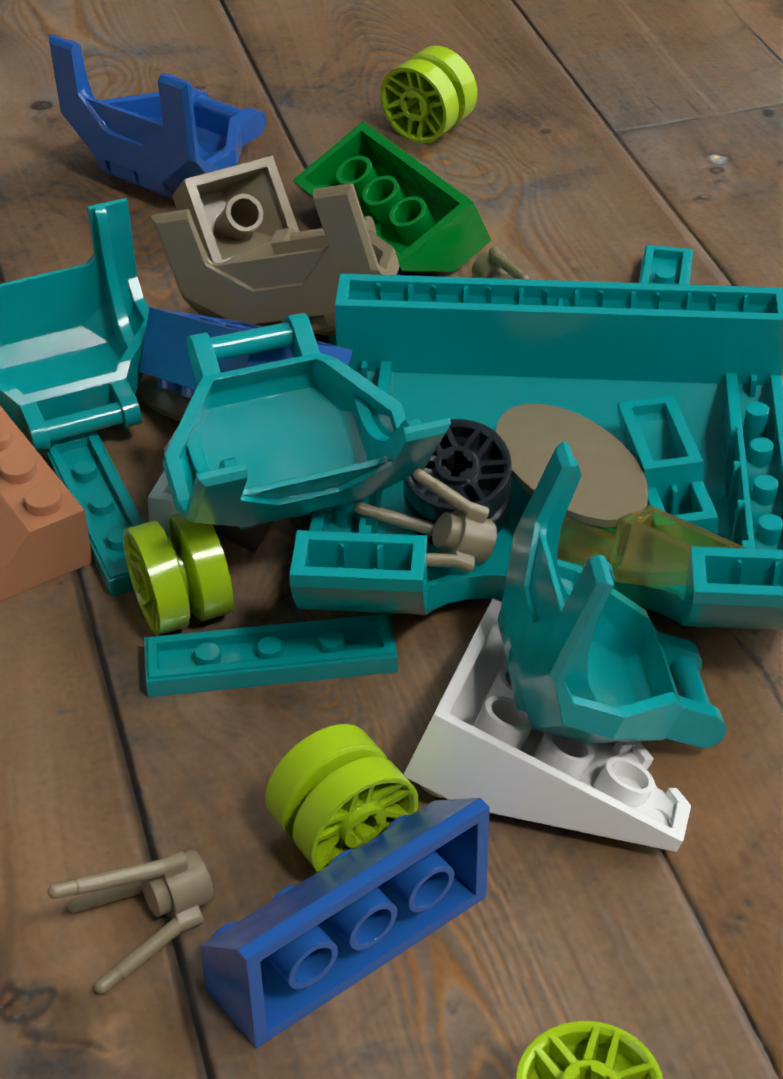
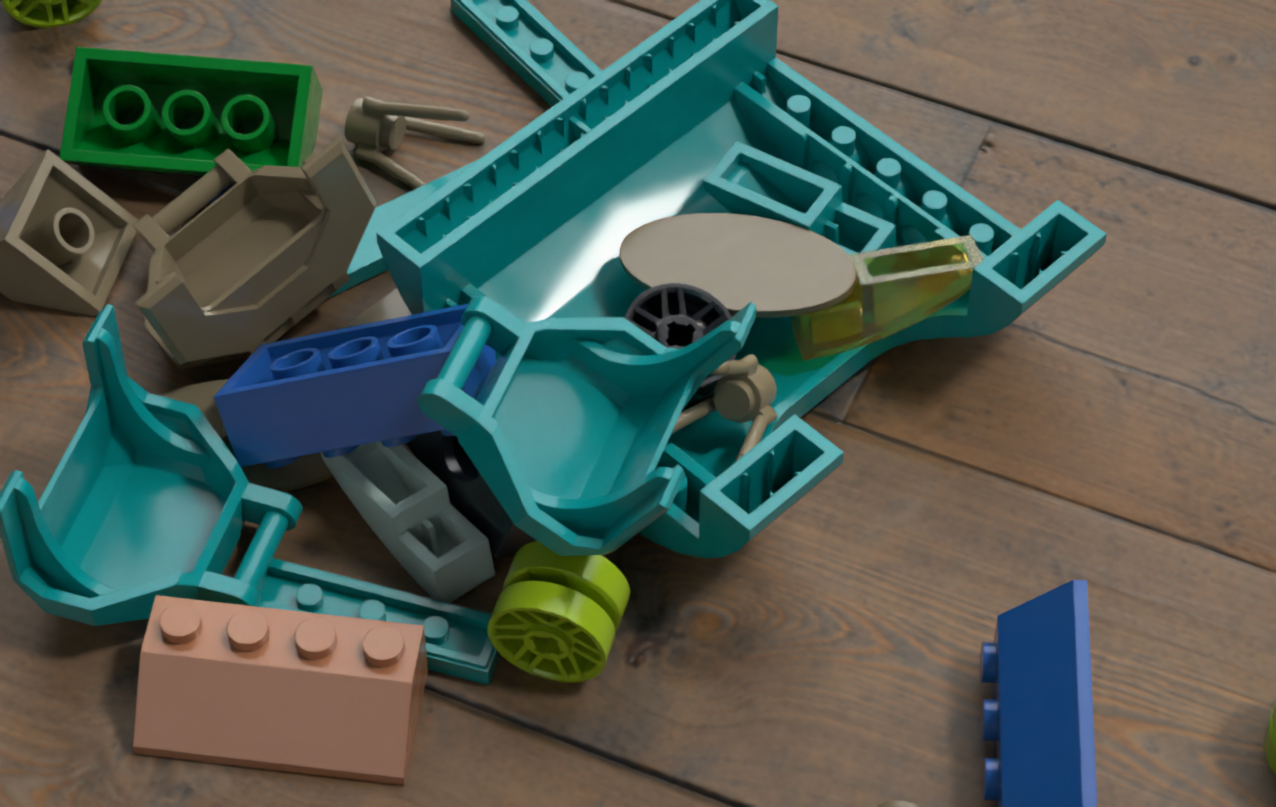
camera: 50 degrees left, 10 degrees up
(269, 655) = (682, 631): teal tile -> none
(337, 793) = (937, 673): lime wheel -> none
(490, 752) = (963, 525): white slope -> none
(584, 652) = (943, 414): teal piece -> none

